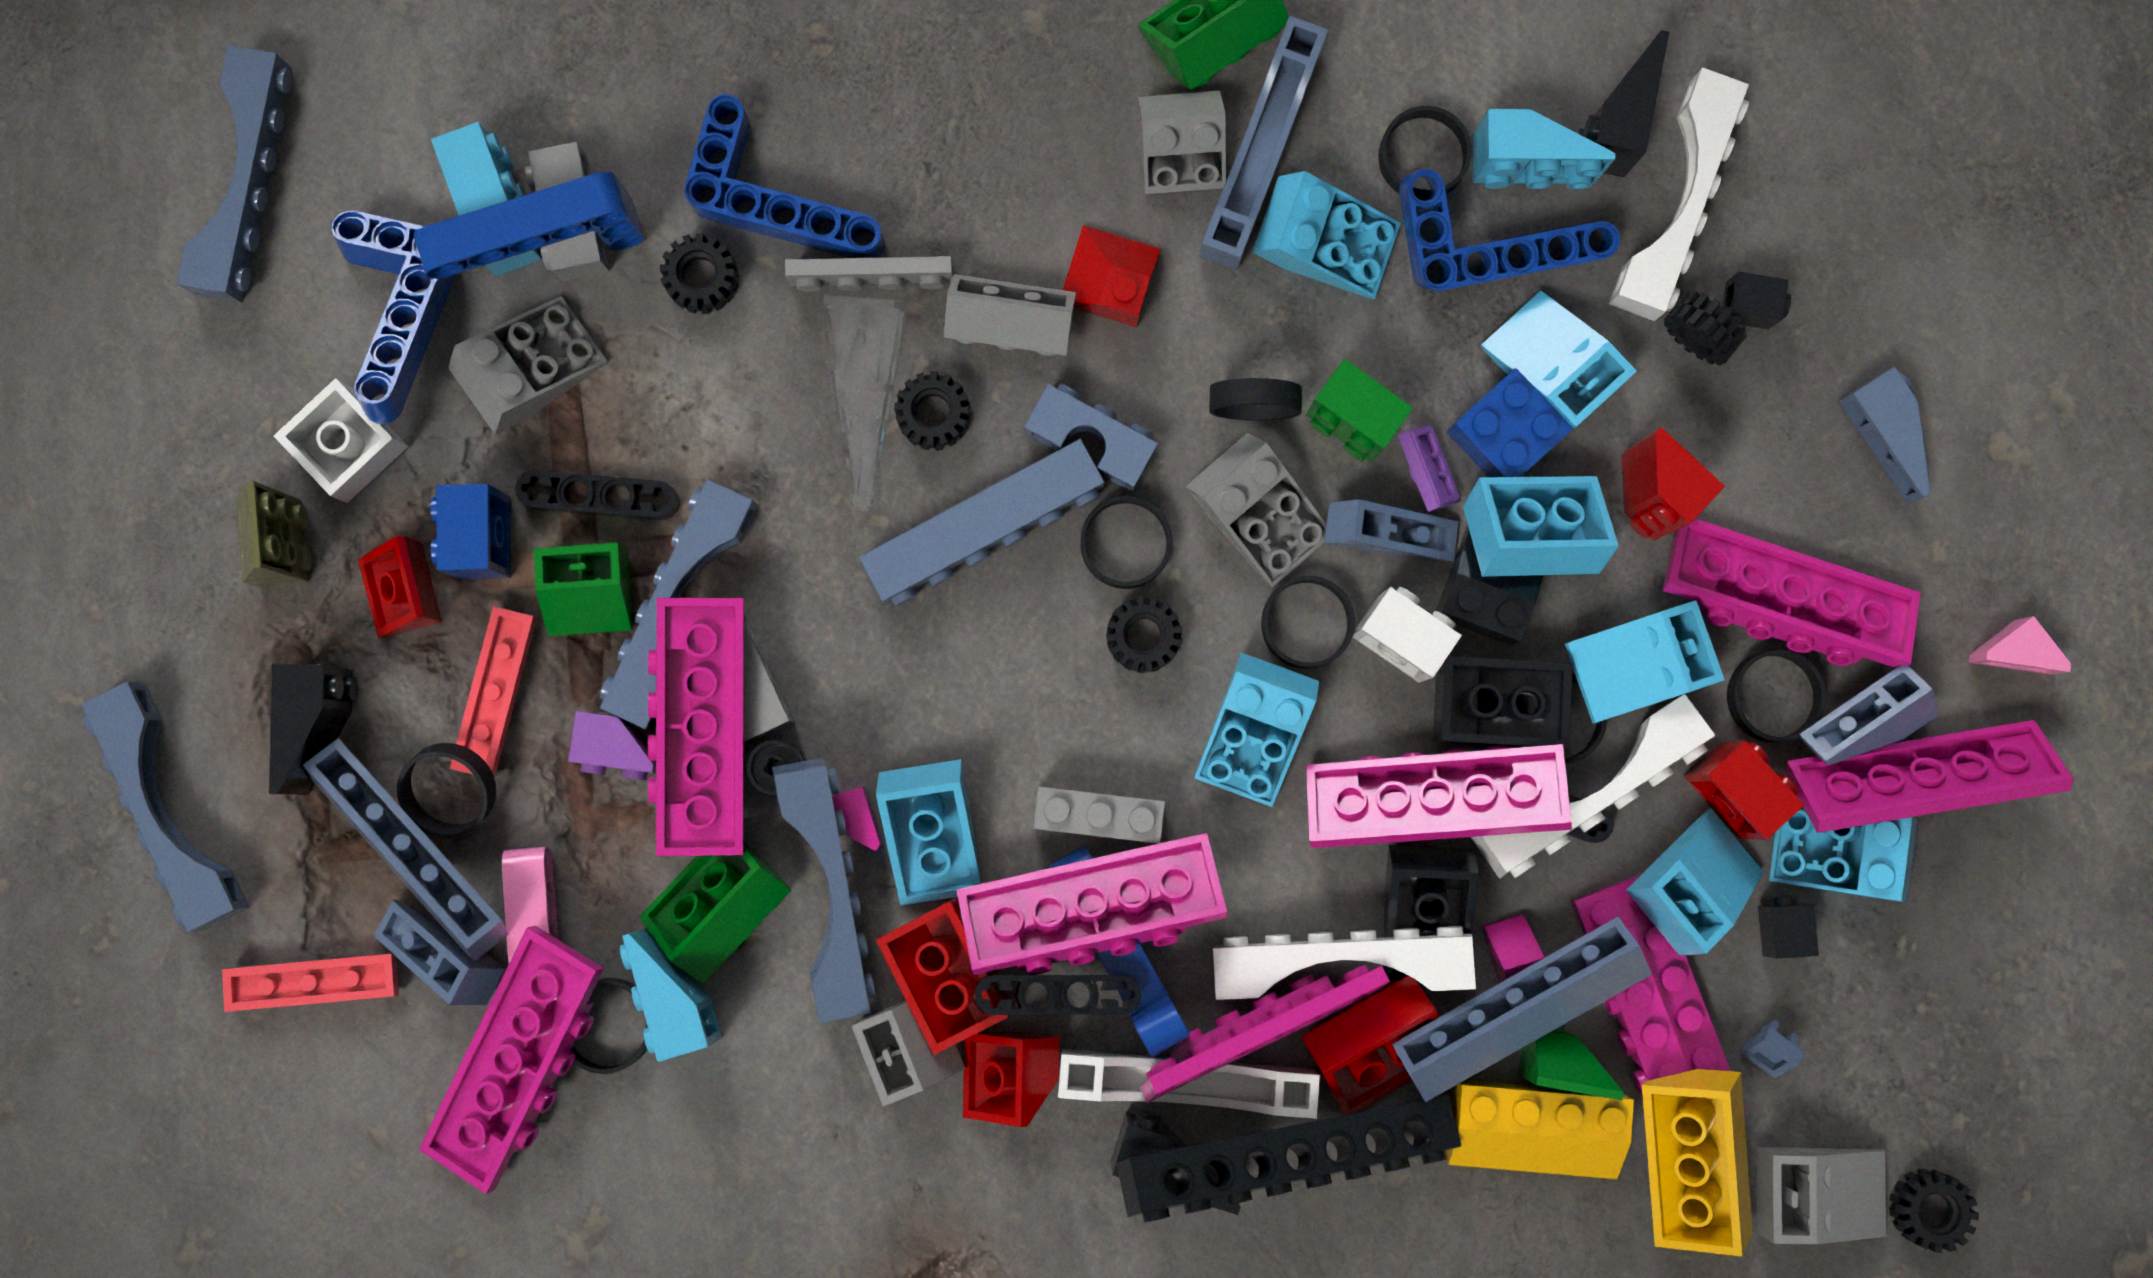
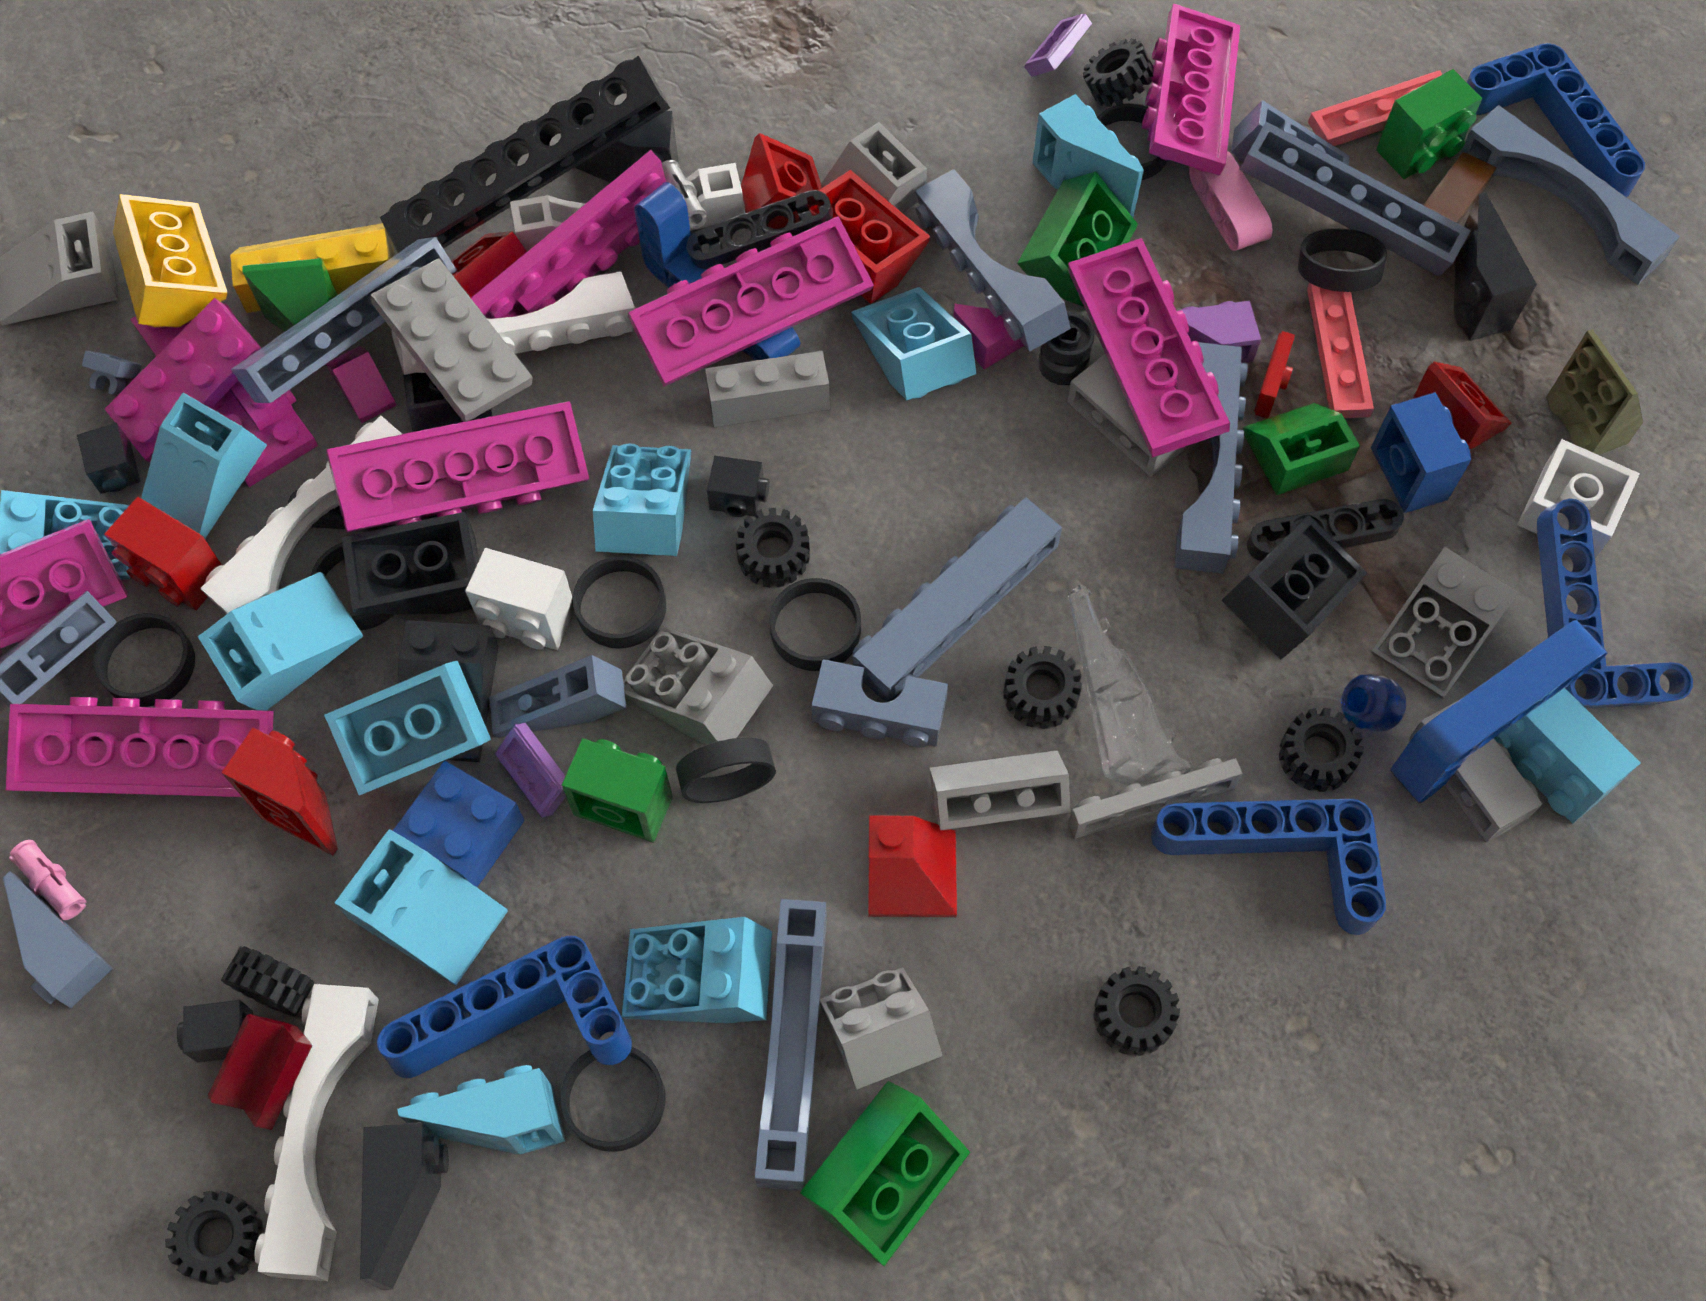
camera: 165 degrees right, 20 degrees down
(114, 915) = (1568, 104): none -> blue beam
(275, 926) = (1428, 124): none -> green brick
(283, 842) = (1460, 187): none -> reddish brown tile
(573, 677) = (1276, 376): none -> red plate
(593, 1132) = (1118, 72): none -> black tyre
(633, 297) = (1373, 702): none -> clear blue head
(637, 1183) = (1058, 45): none -> medium lavender plate
(655, 433) = (1294, 587): none -> black slope
(953, 68) = (1155, 991): none -> black tyre
(1131, 1099) = (674, 175): none -> light grey pin
(1161, 709) = (736, 486): none -> black brick
(1418, 936) = (451, 340): none -> light grey plate
(1698, 1000) = (192, 364): none -> dark pink plate
(1719, 251) = (261, 1069): none -> dark red panel
(1795, 118) = (185, 1246): none -> black tyre
(1889, 494) = (47, 879): none -> bright pink pin

